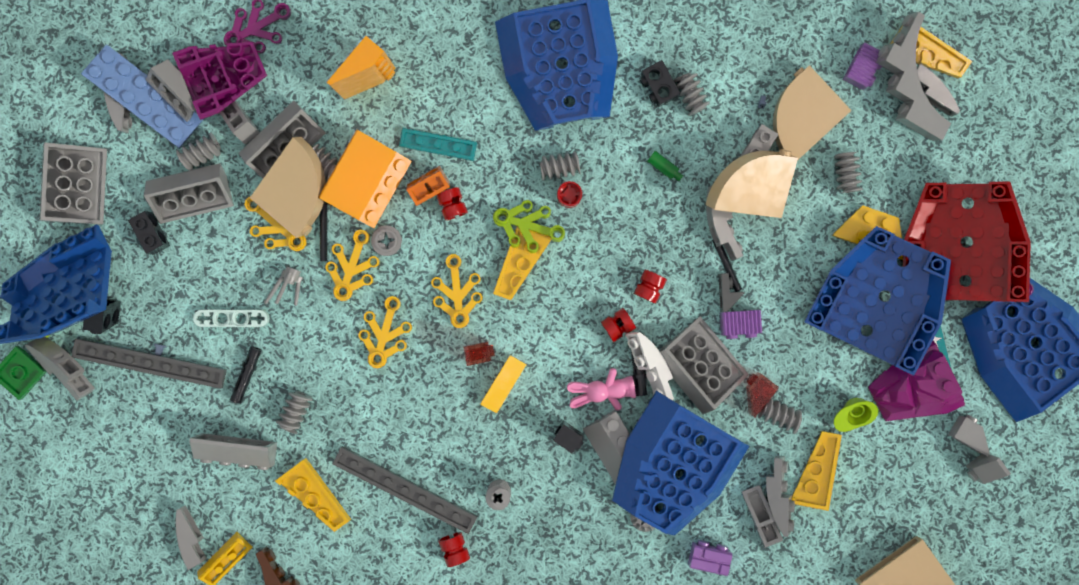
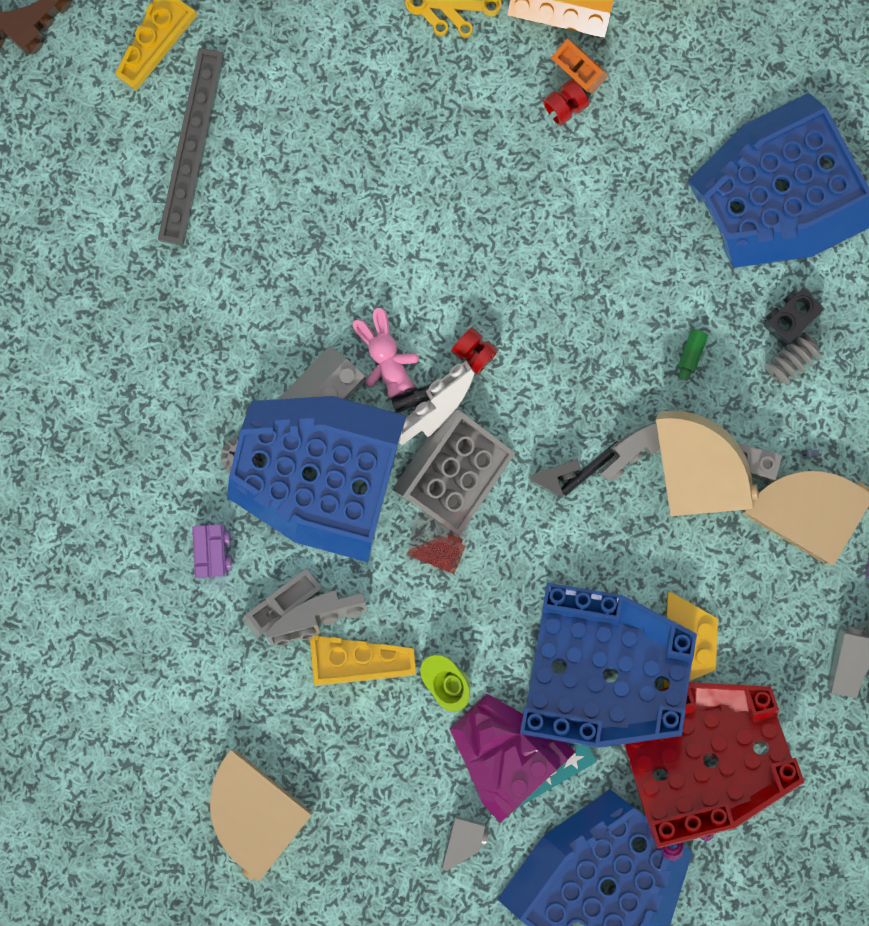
camera: 75 degrees right, 5 degrees down
(379, 235) = (501, 27): light grey gear -> none
(383, 336) = (377, 67): yellow plant -> none
(438, 144) = (634, 67): teal tile -> none
(454, 551) = (133, 226): red wheel -> none
(457, 294) = (455, 142): yellow plant -> none
(478, 353) = (389, 185): clear red slope -> none
(498, 502) = (211, 258): light grey piece -> none
(503, 384) = (358, 230): yellow slope -> none
(519, 264) = (526, 208): yellow wing -> none
(526, 224) = (567, 200): lime plant -> none
(559, 165) = (652, 221): light grey piece -> none
(568, 438) = (315, 325): black brick -> none
(569, 194) = (620, 243): red wheel -> none
(650, 286) = (535, 377): red wheel -> none
(740, 322) = (521, 504): medium lavender brick -> none
(782, 414) = (419, 589): light grey piece -> none
(848, 172) = (754, 585): light grey piece -> none
(987, 469) = (425, 873): light grey slope -> none

